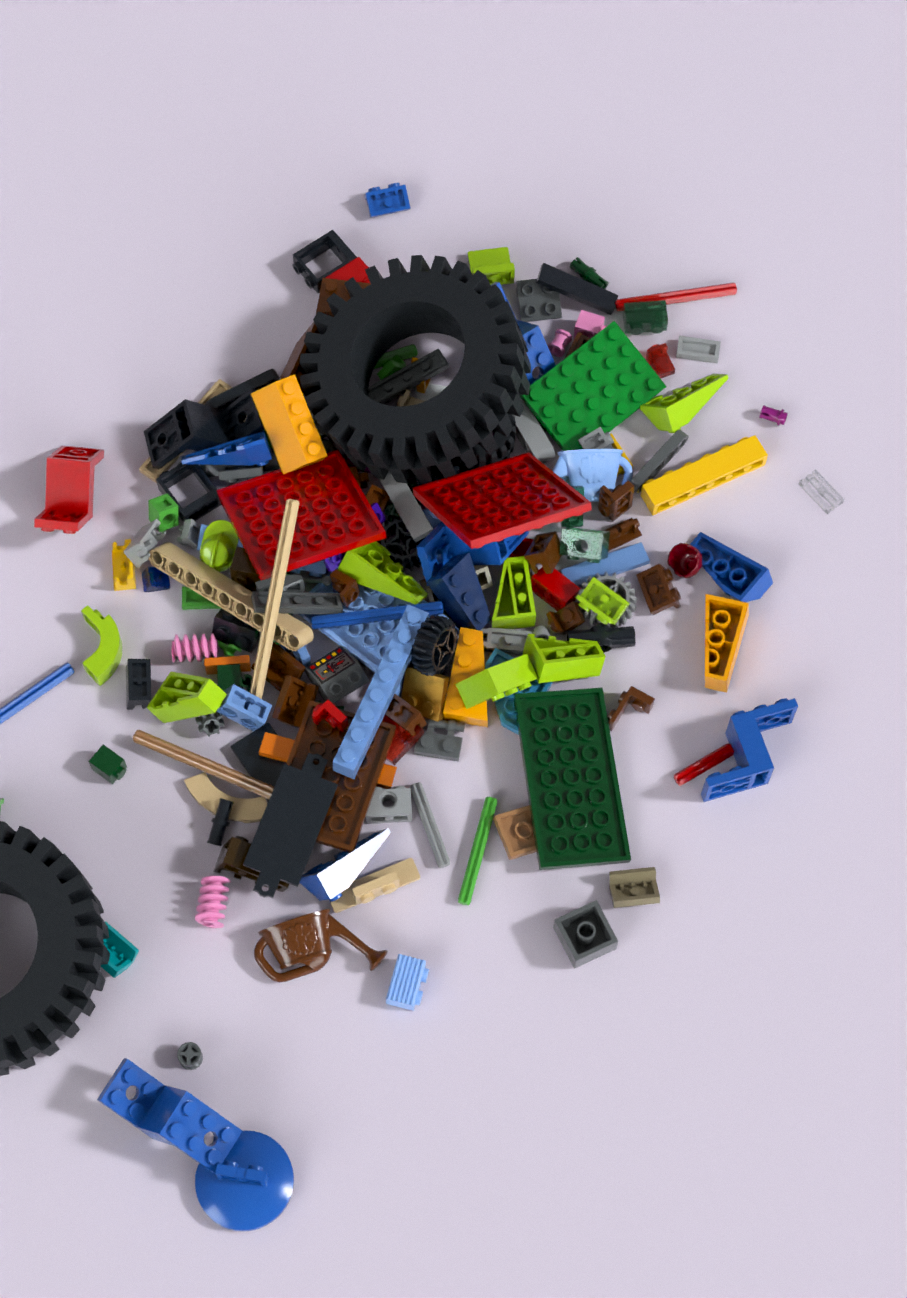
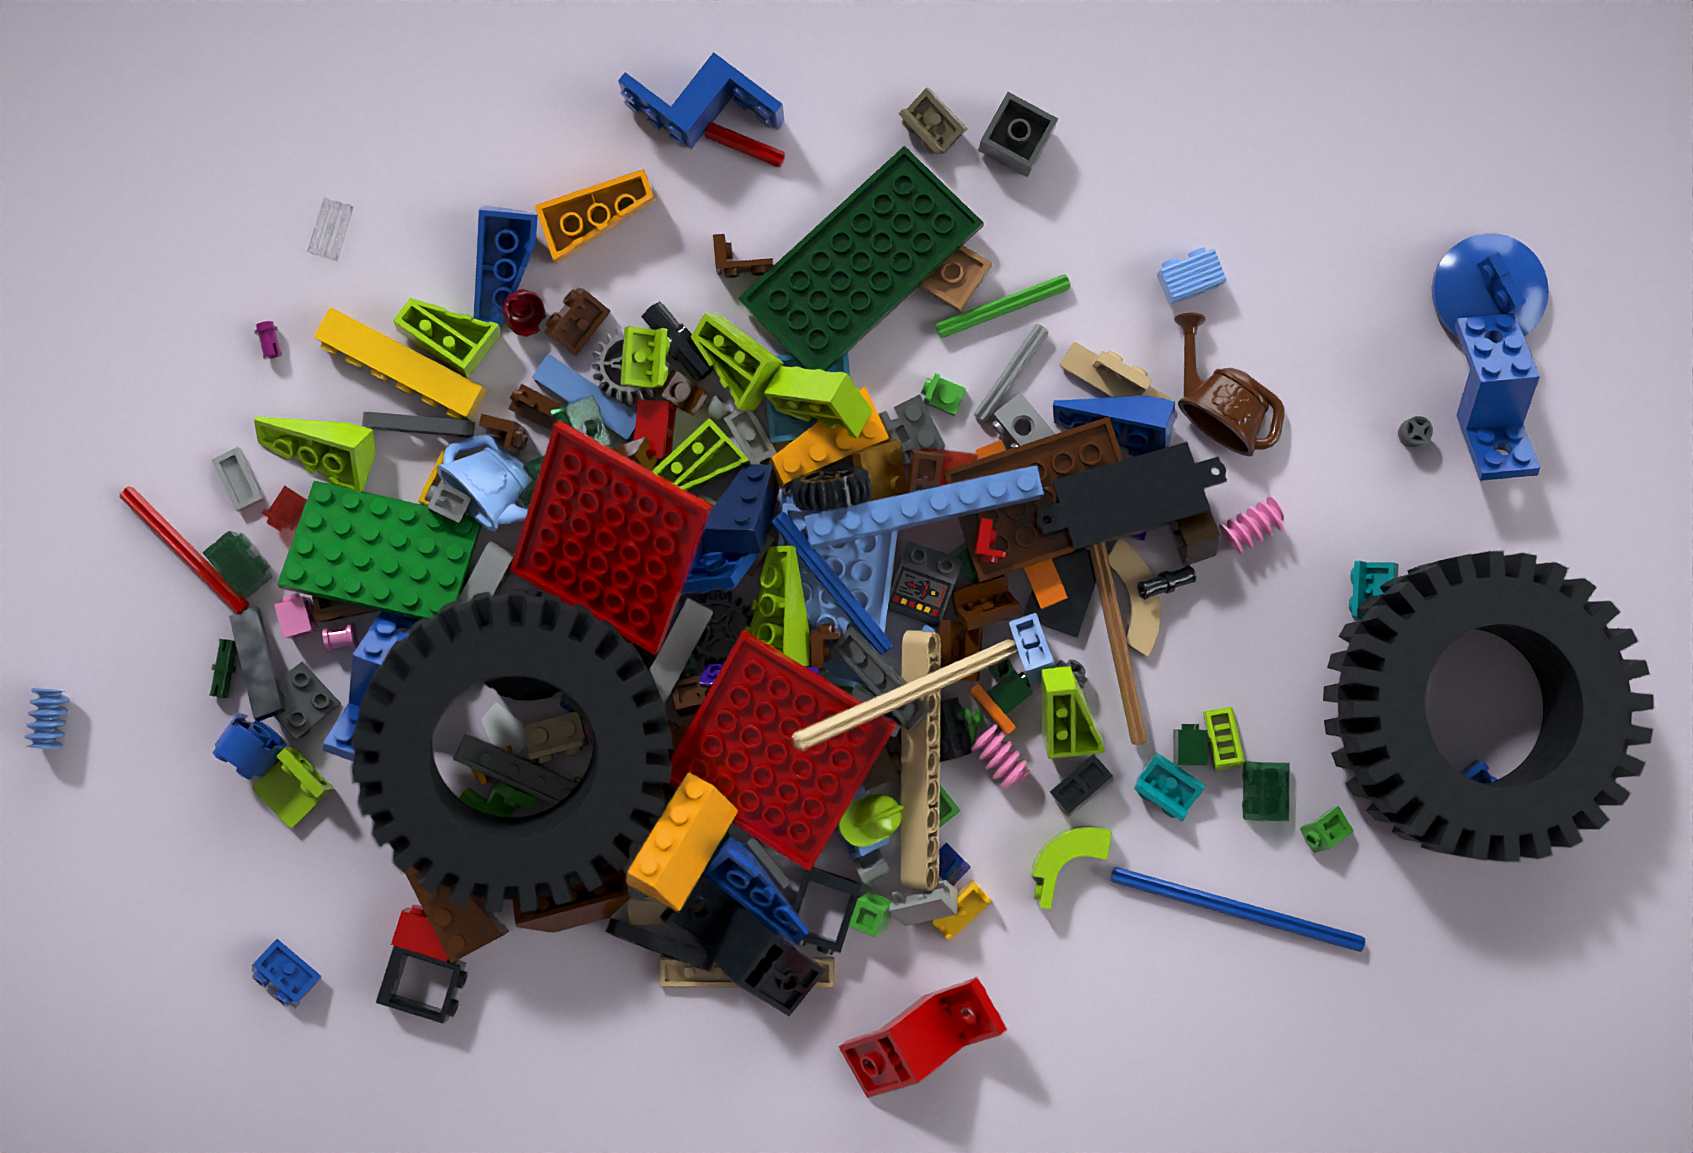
camera: 125 degrees left, 20 degrees up
(42, 791) = (1266, 791): none -> clear green bracket
(93, 732) = (1168, 787): none -> teal bracket
(93, 779) = (1238, 760): none -> lime slope
(448, 773) = (942, 394): none -> bright green bracket
(529, 254) = (248, 746): none -> blue brick
(626, 172) = (47, 719): none -> medium blue piece
(701, 508) = (448, 336): none -> lime wedge

